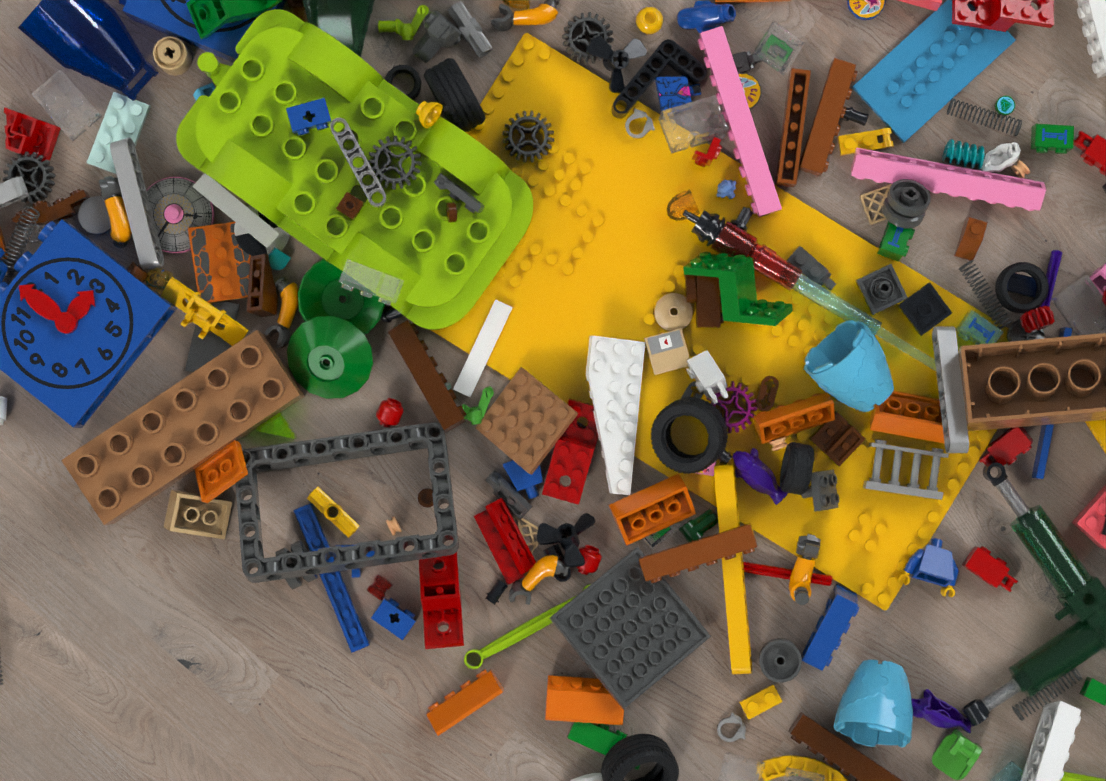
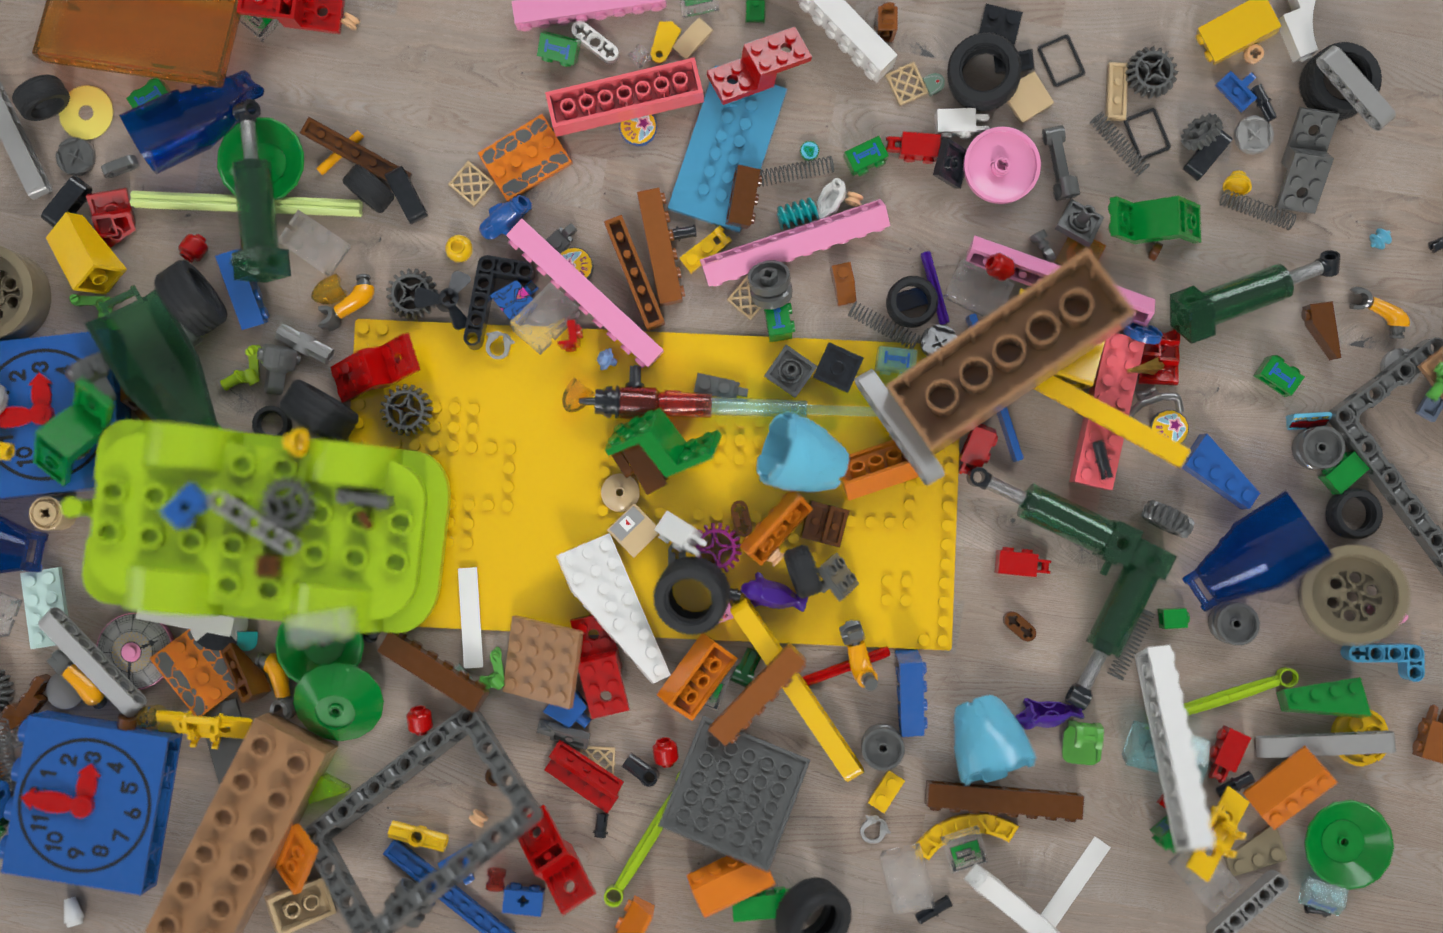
camera: 25 degrees left, 0 degrees up
(522, 85) = (375, 368): none -> red bracket
(543, 568) = (629, 784): light orange piece -> none
(550, 535) = (619, 749): black piece -> none
(778, 48) = (584, 210): clear tile -> none
(912, 488) = (914, 530): light grey fence -> none
(925, 114) = (743, 196): none -> reddish brown brick
(933, 566) = (970, 588): torso -> none
(961, 622) = (1021, 623): none -> reddish brown beam
(1037, 319) = (940, 322): red gear -> none

